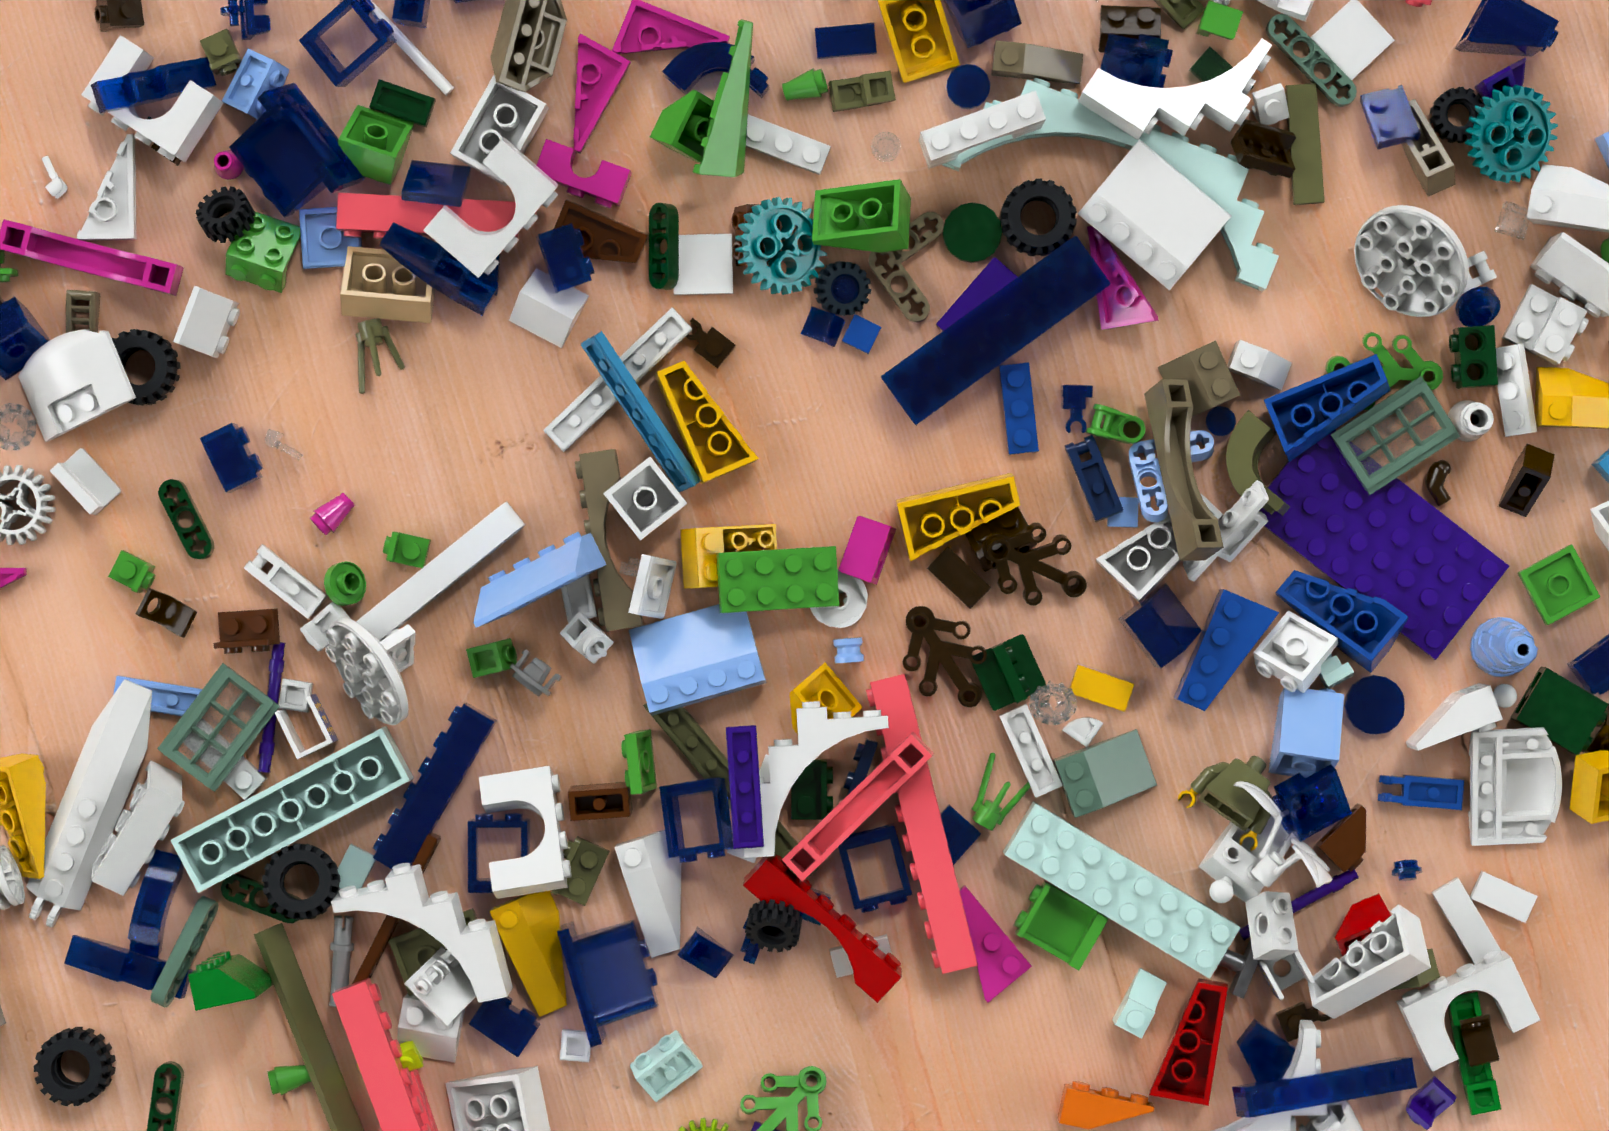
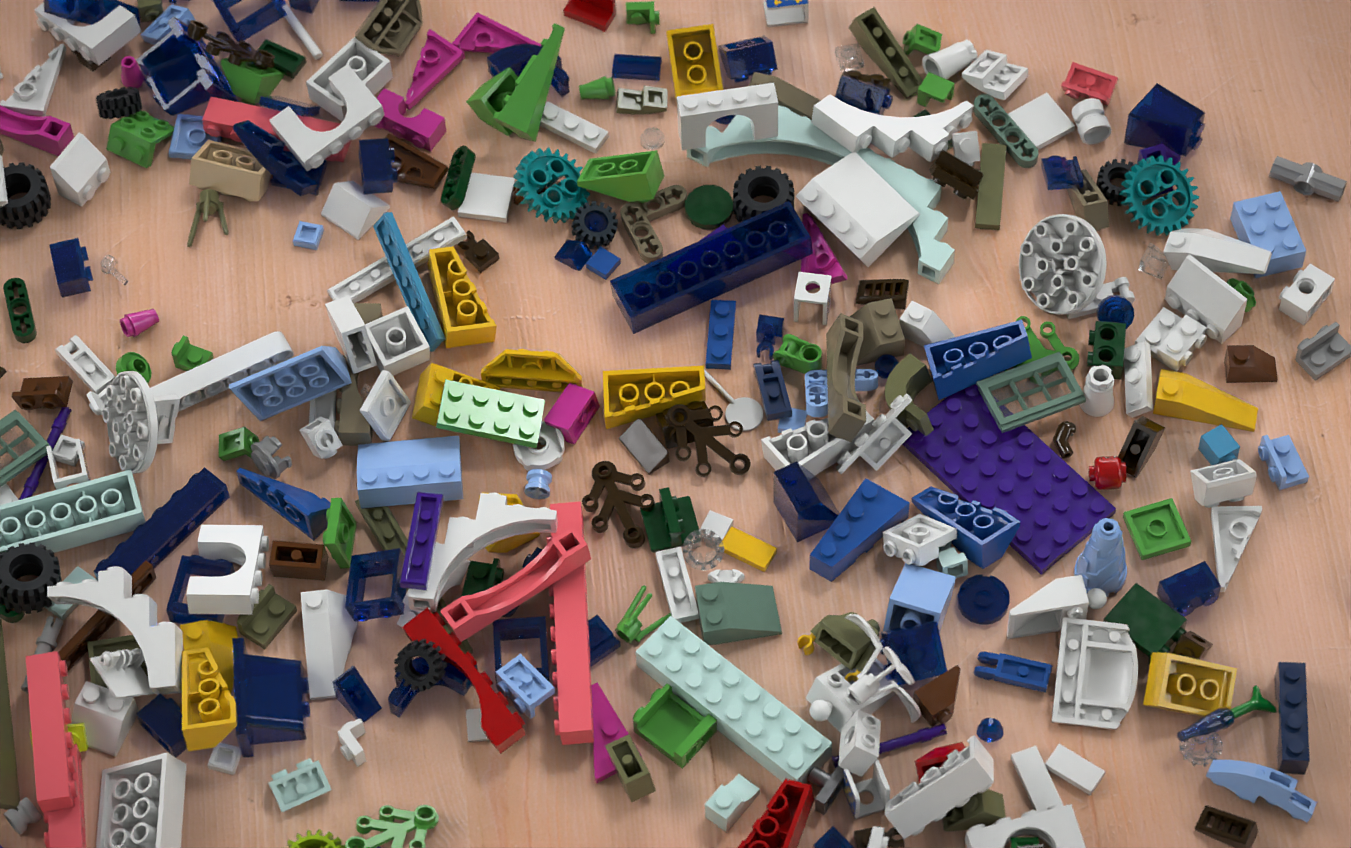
camera: 15 degrees right, 30 degrees down
(380, 119) = (222, 42): none -> dark brown plant
(501, 355) = (308, 235): none -> light blue tile
(547, 1011) = (207, 705): none -> yellow wedge
(585, 729) = (294, 504): none -> blue wedge
(591, 505) = (351, 334): none -> white slope
(712, 1014) = (350, 747): none -> white bracket
(811, 501) = (530, 371): none -> yellow wedge
(891, 920) = (523, 685): none -> light blue bracket
(1023, 989) = (630, 768): none -> olive slope
(1060, 666) = (717, 523): none -> white tile
(1062, 508) = (743, 409): none -> white piece
(1110, 361) = (823, 296): none -> white piece
(1225, 316) = (883, 285): none -> dark brown slope
(1415, 34) = (1091, 121): none -> white wheel
(1495, 524) = (1107, 473): none -> red head

